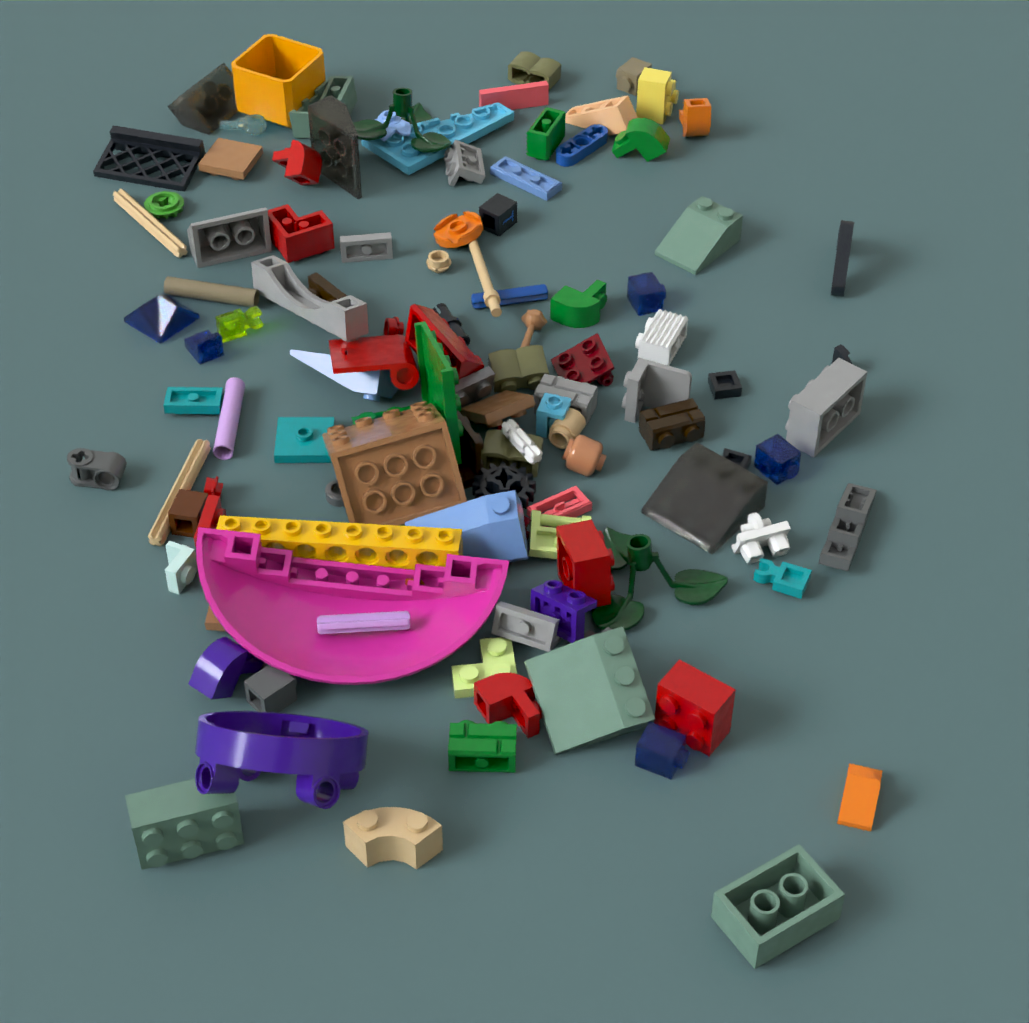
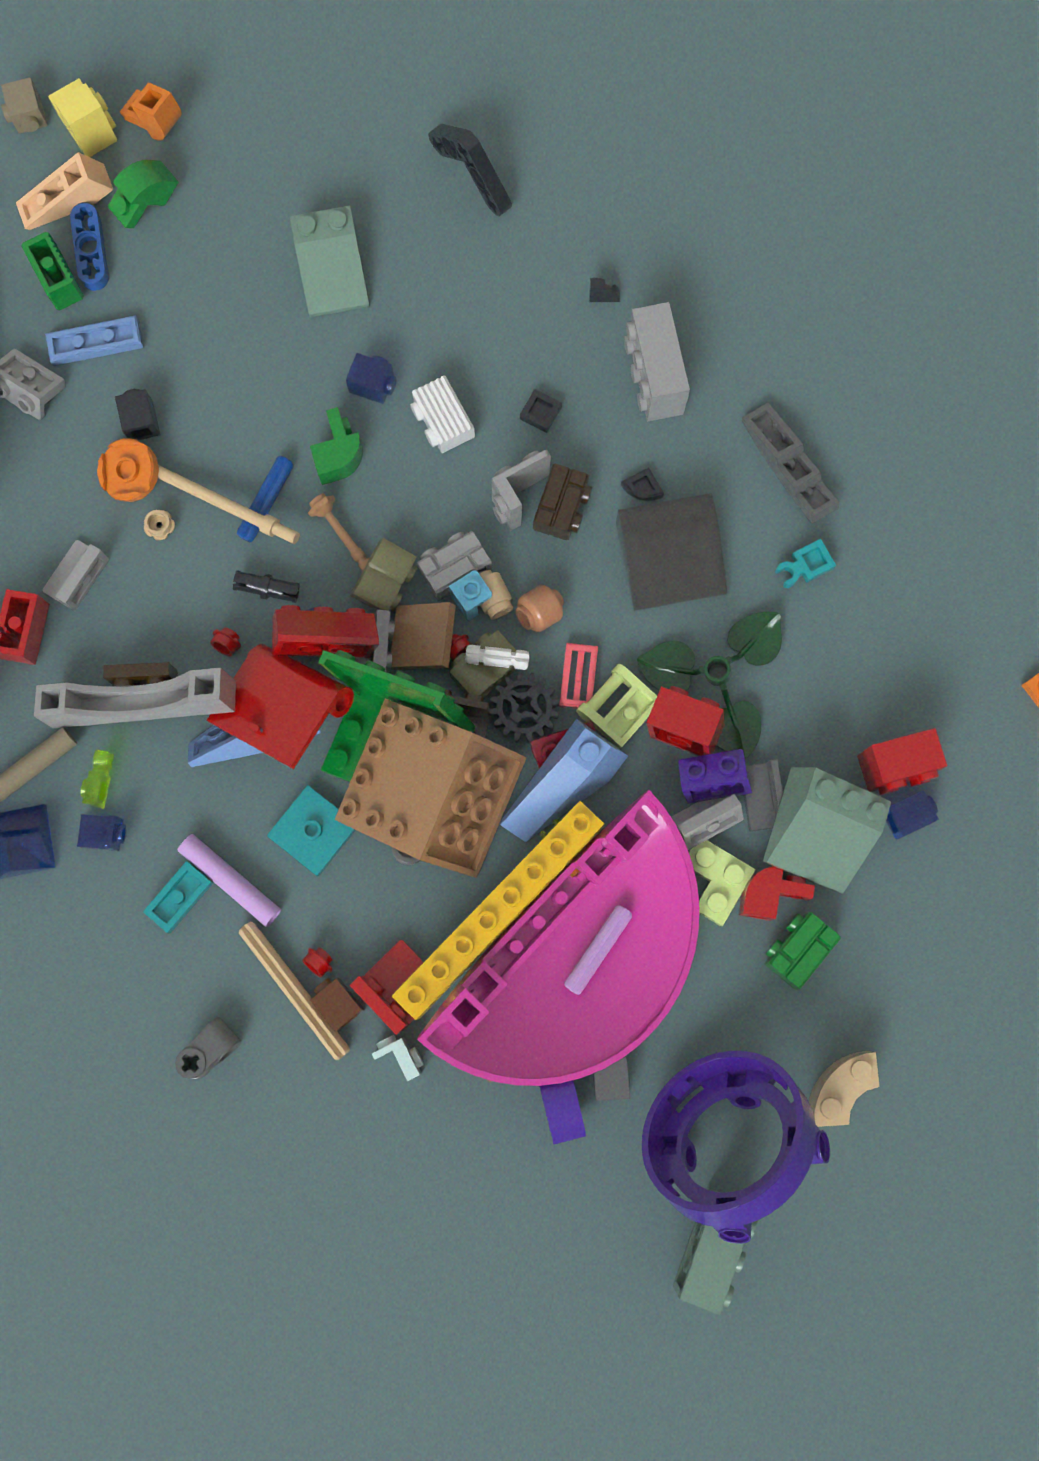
camera: 50 degrees left, 35 degrees up
(585, 362) = (419, 512): dark red hinge -> none
(761, 533) = (748, 544): white hips -> none
(777, 459) = (675, 452): clear blue brick -> none

